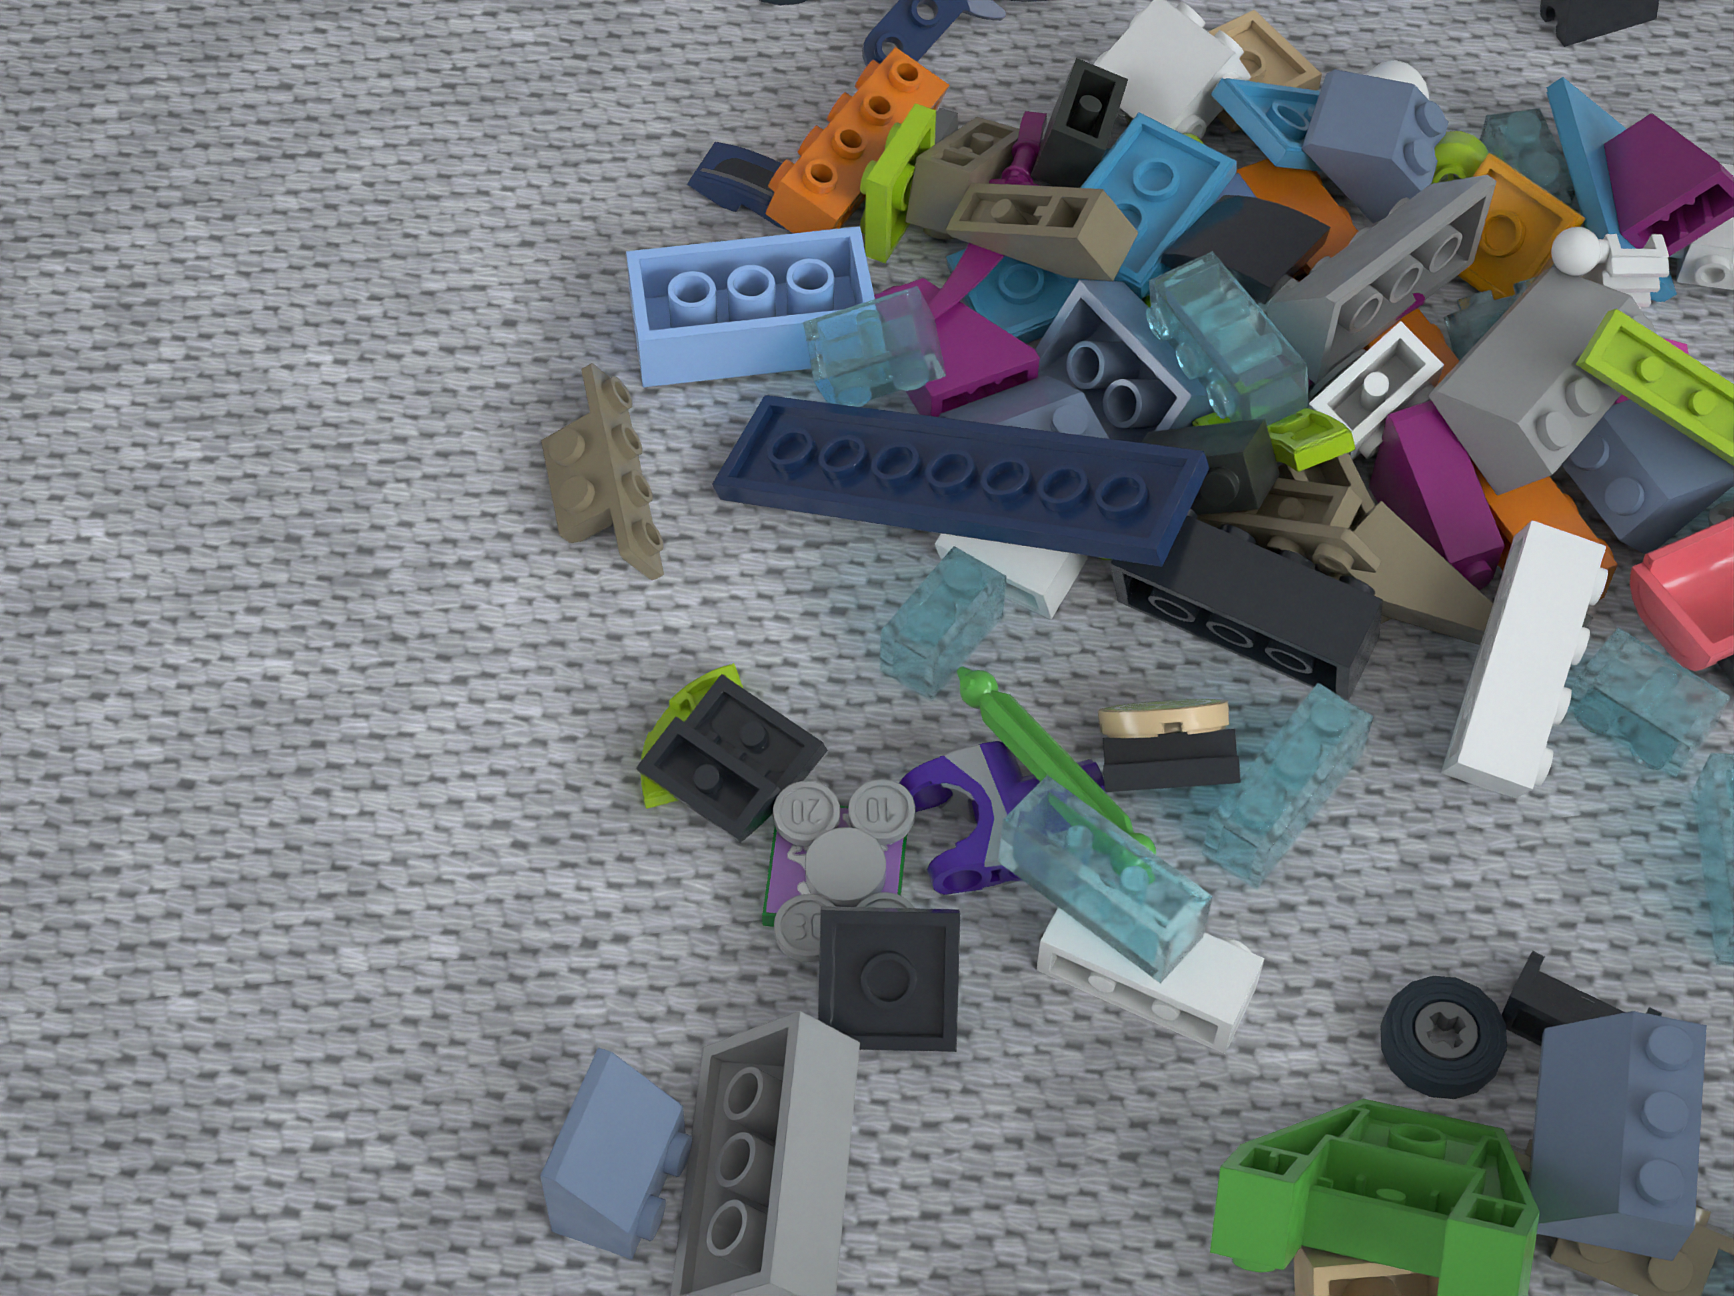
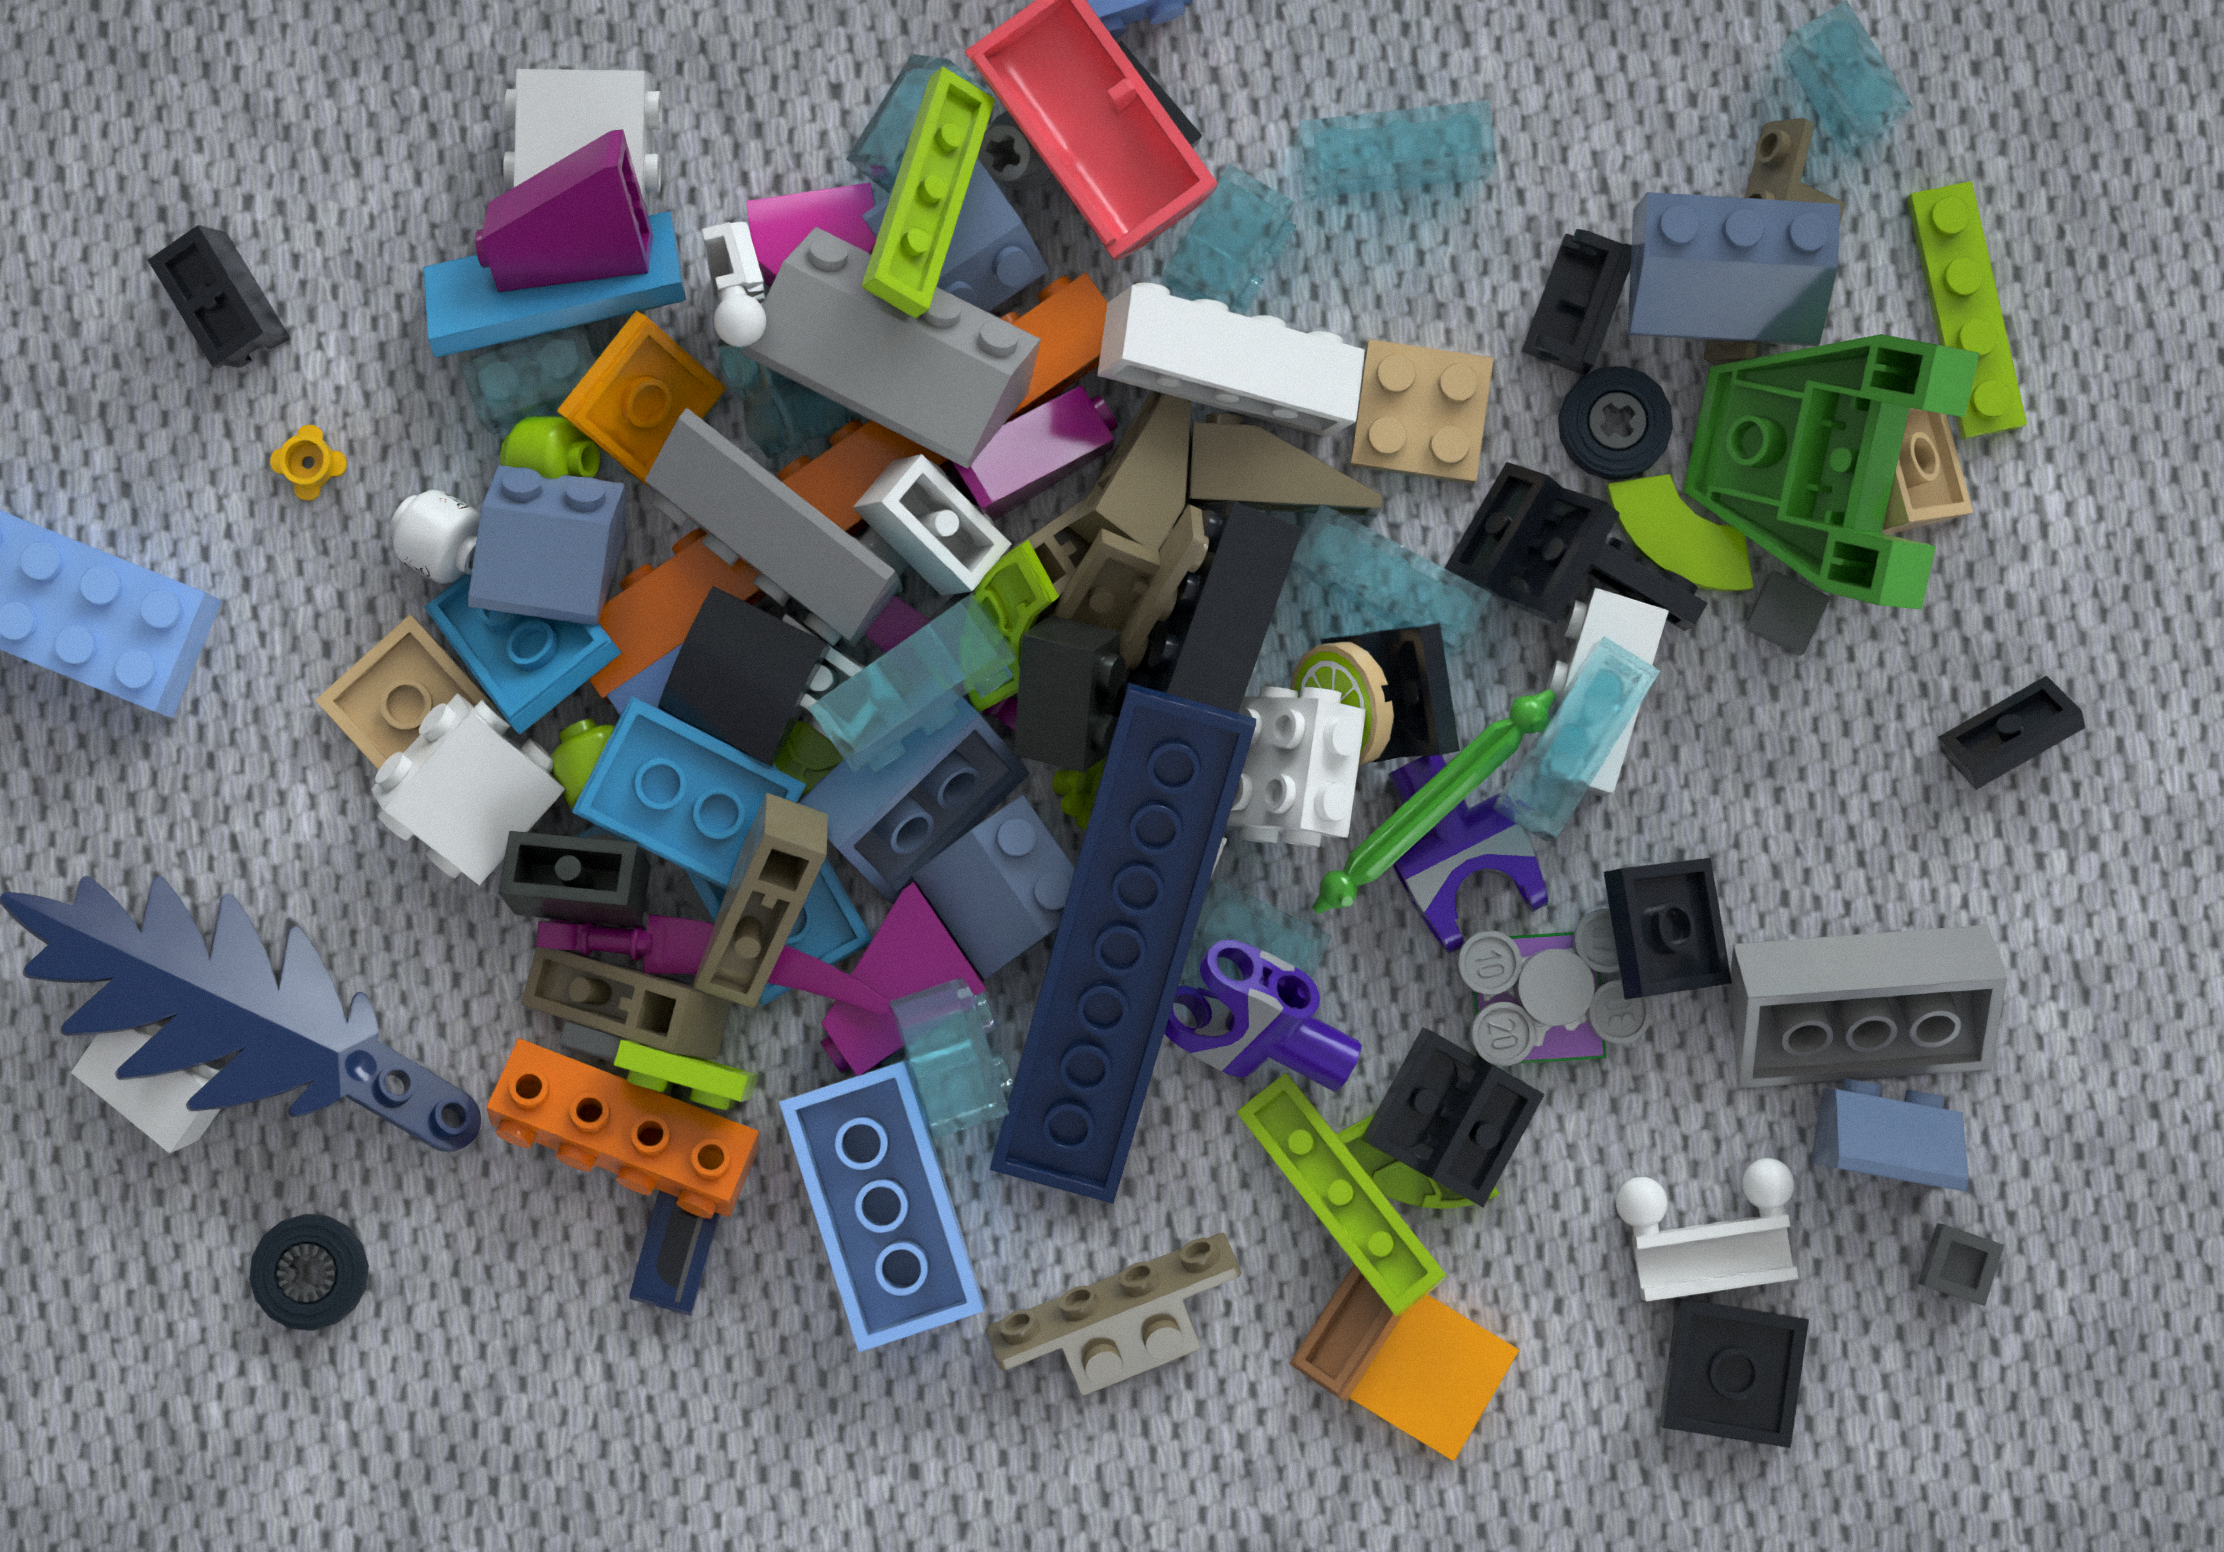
camera: 110 degrees left, 30 degrees up
(407, 982) = (1733, 1372): none -> black plate
(460, 1229) = (1961, 1264): none -> dark grey plate
(485, 719) = (1435, 1375): none -> light orange tile
(535, 979) = (1712, 1254): none -> white gear
(545, 655) = (1346, 1336): none -> medium nougat tile
(675, 649) = (1342, 1194): none -> lime plate
(860, 595) = (1261, 1019): none -> dark purple connector
(1106, 655) = (1298, 767): none -> white brick
(1199, 1173) = (1786, 612): none -> dark grey tile
(1248, 1045) = (1620, 569): none -> black plate
(1317, 1074) = (1677, 538): none -> lime tile
(1318, 922) = (1532, 541): none -> black slope
(1410, 695) = (1267, 473): none -> dark tan slope
(1457, 37) = (290, 458): none -> yellow plate
(1464, 858) = (1421, 411): none -> tan plate

